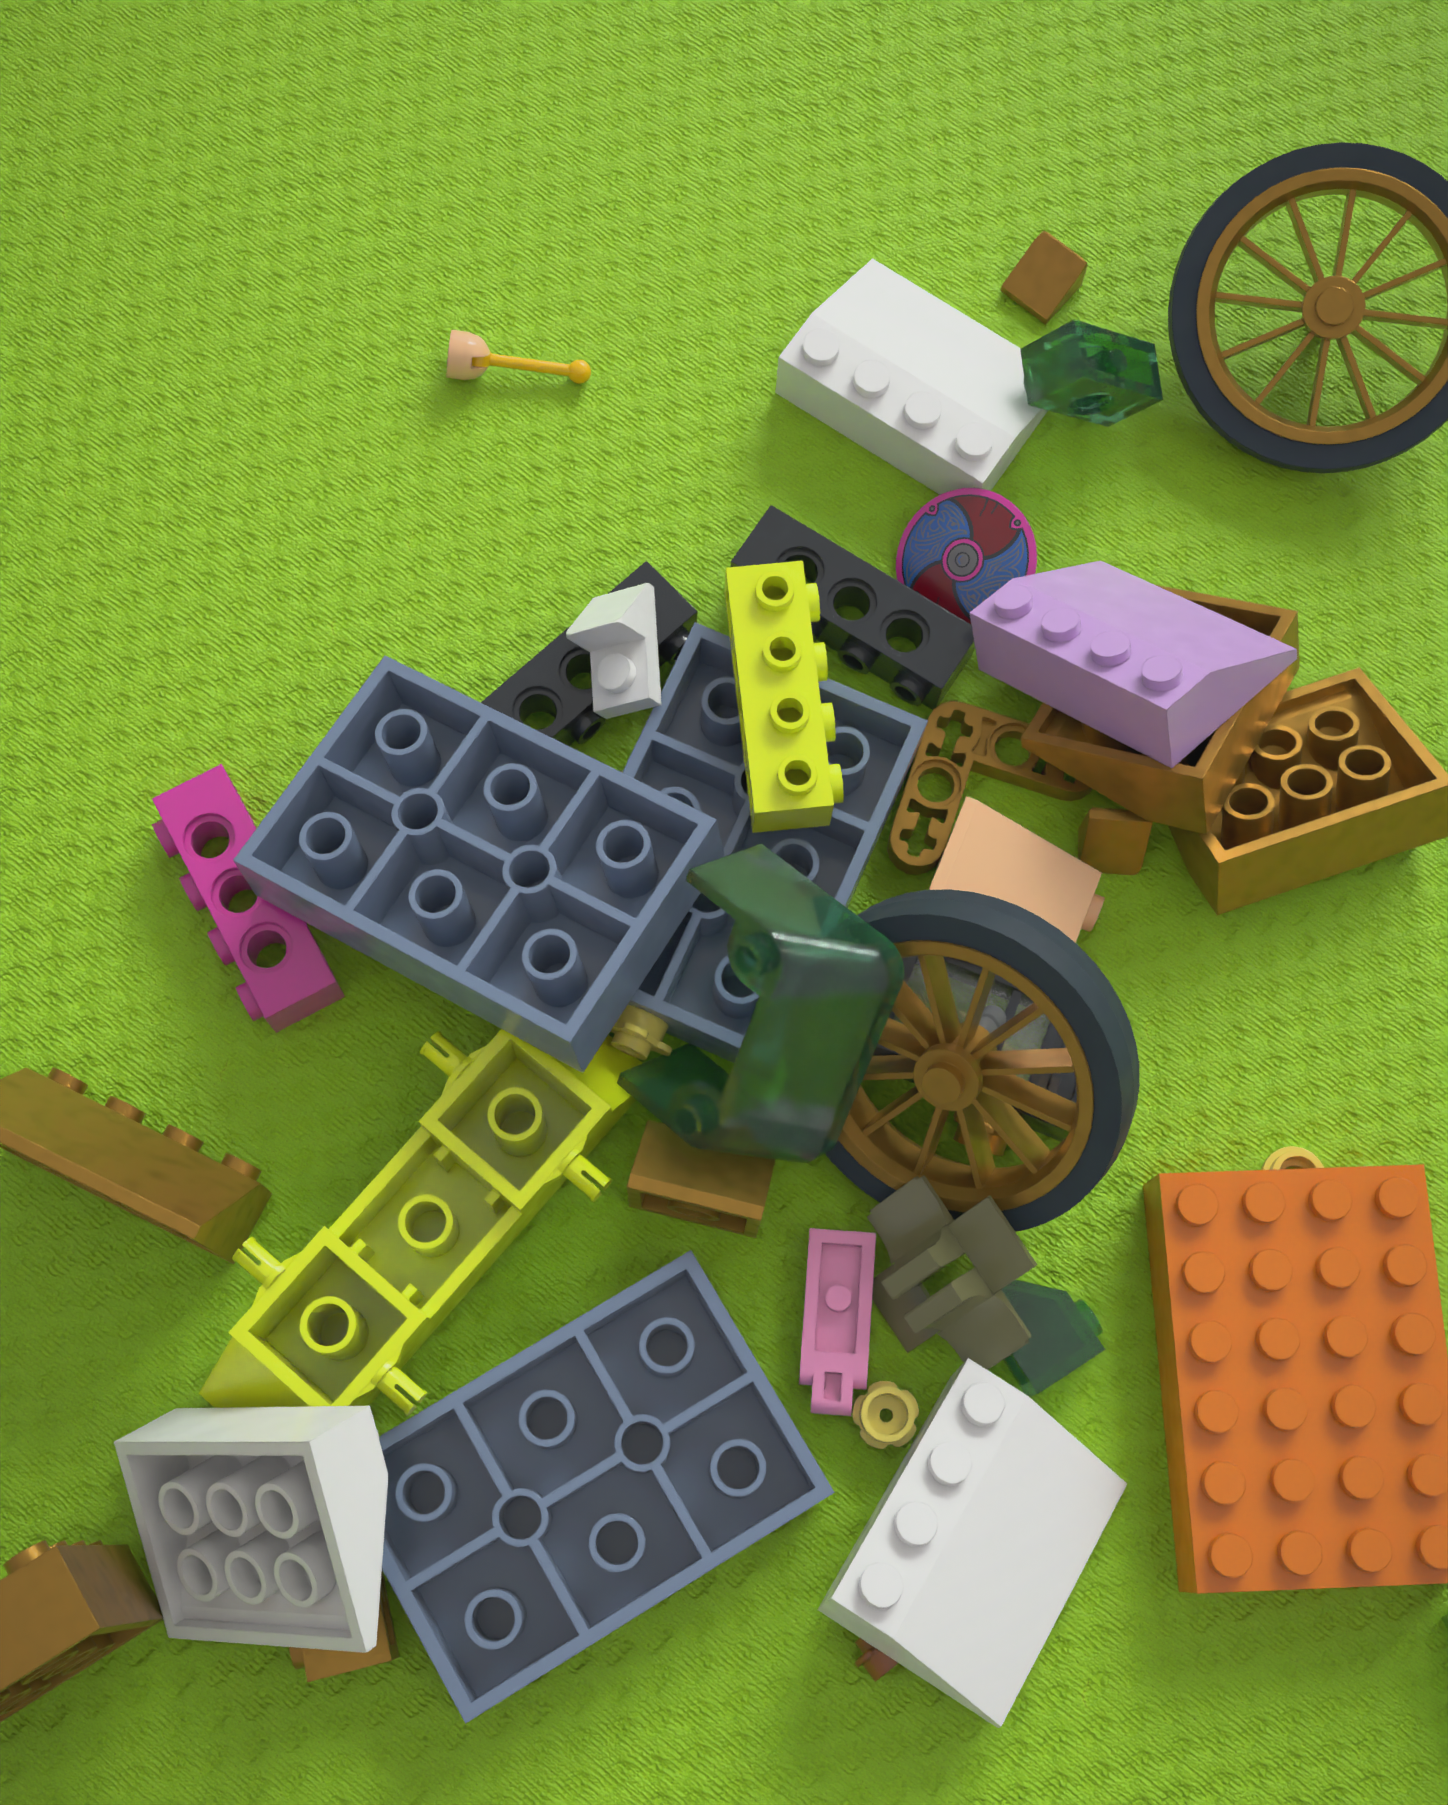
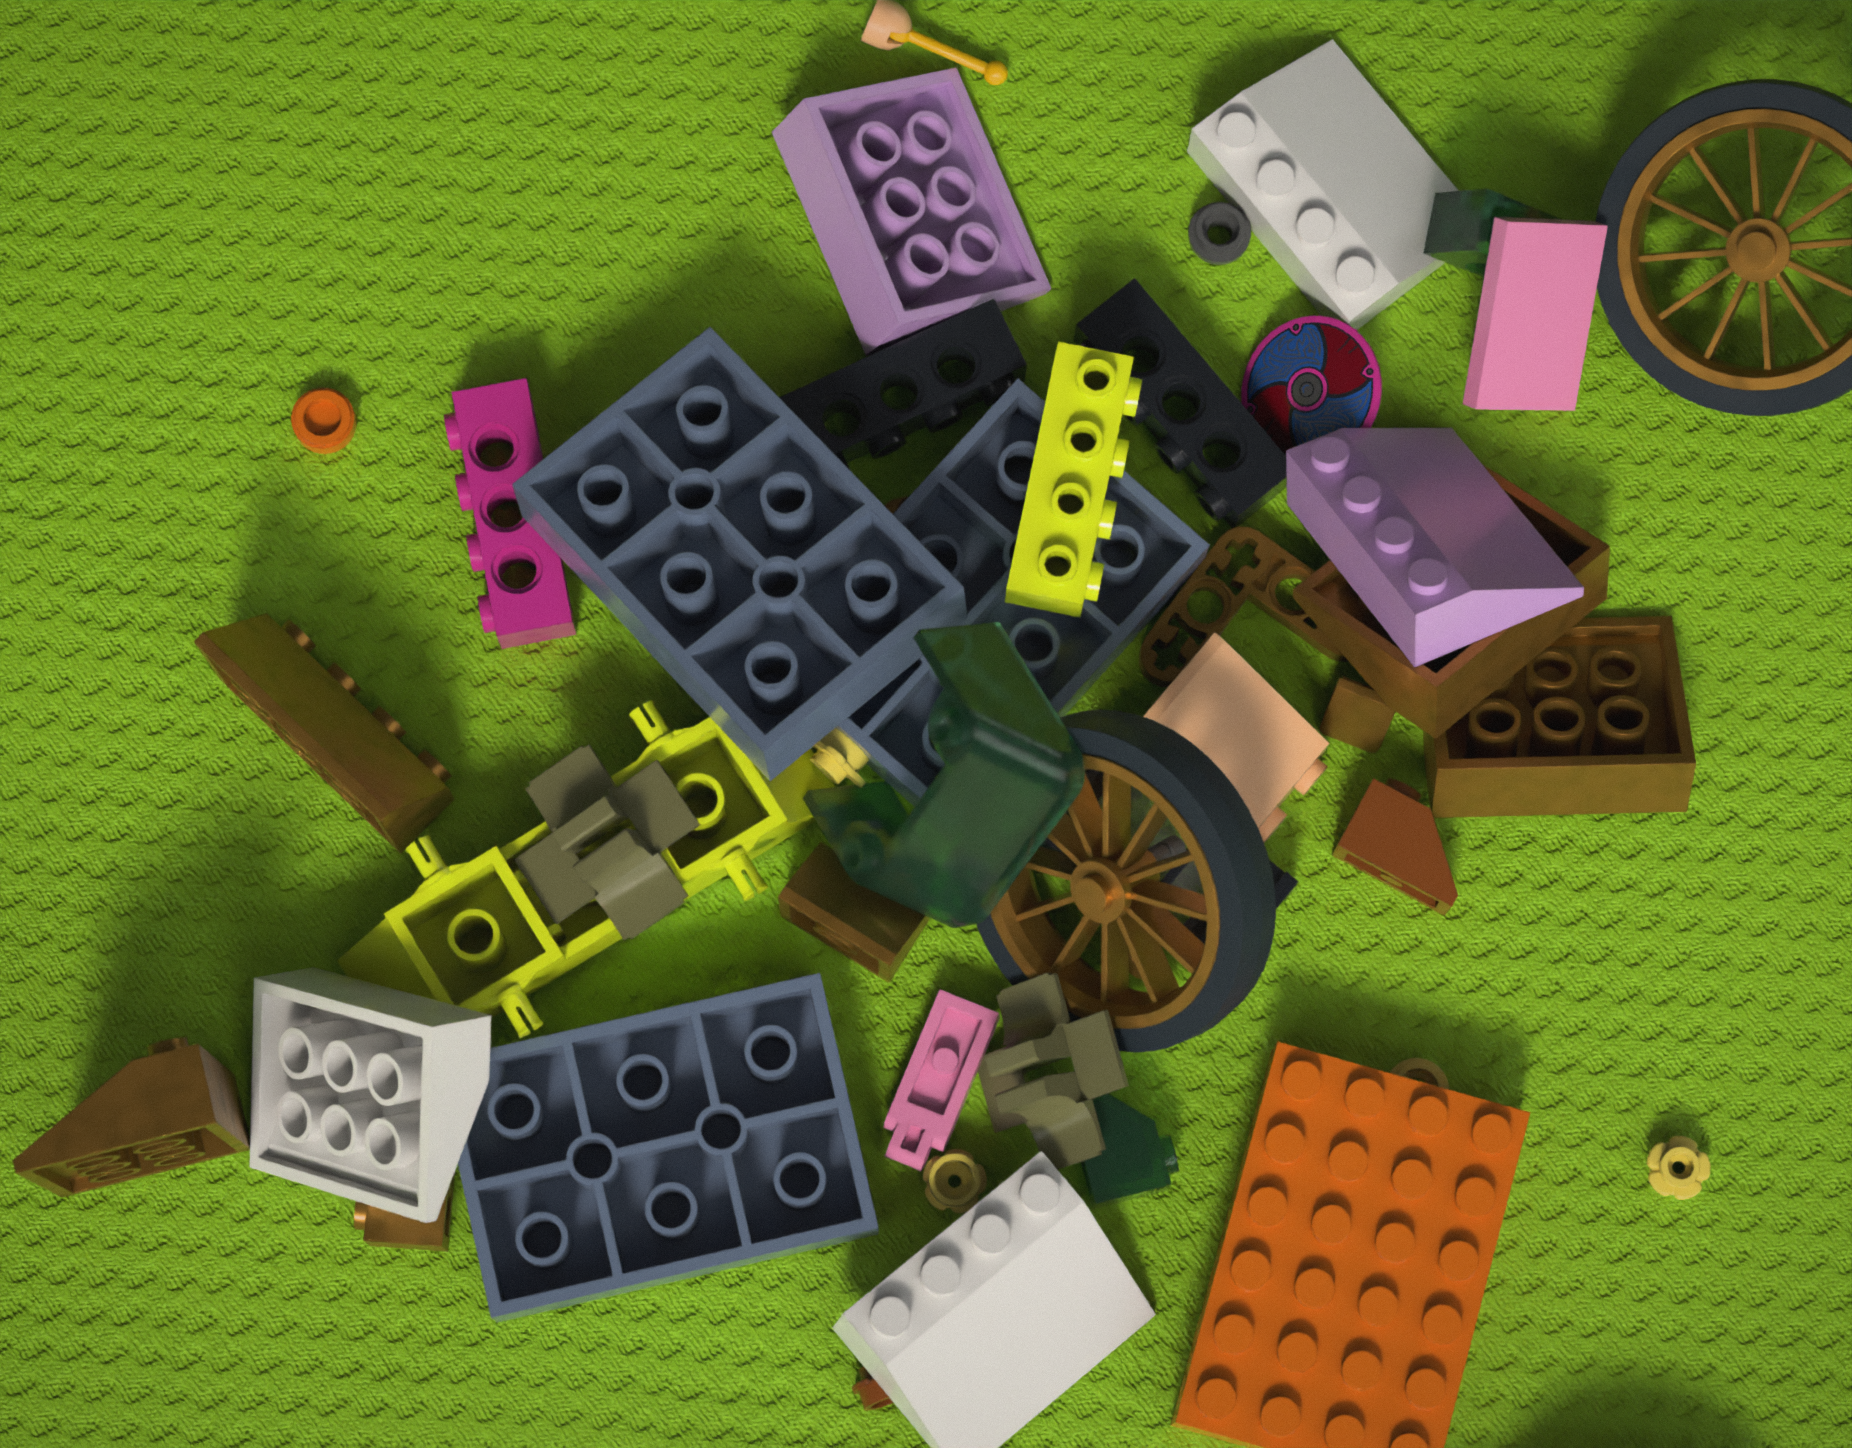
camera: 20 degrees right, 5 degrees up
(37, 867) = (323, 420): none -> orange tile
(466, 1208) = (626, 871): none -> olive piece
(534, 505) = (908, 205): none -> lavender slope
(623, 650) = (940, 385): white slope -> none
(835, 436) = (1219, 215): none -> dark grey plate
(1045, 277) = (1500, 114): pearl gold slope -> none
(1148, 427) = (1534, 314): none -> bright pink tile
(1197, 950) = (1399, 845): none -> dark orange slope

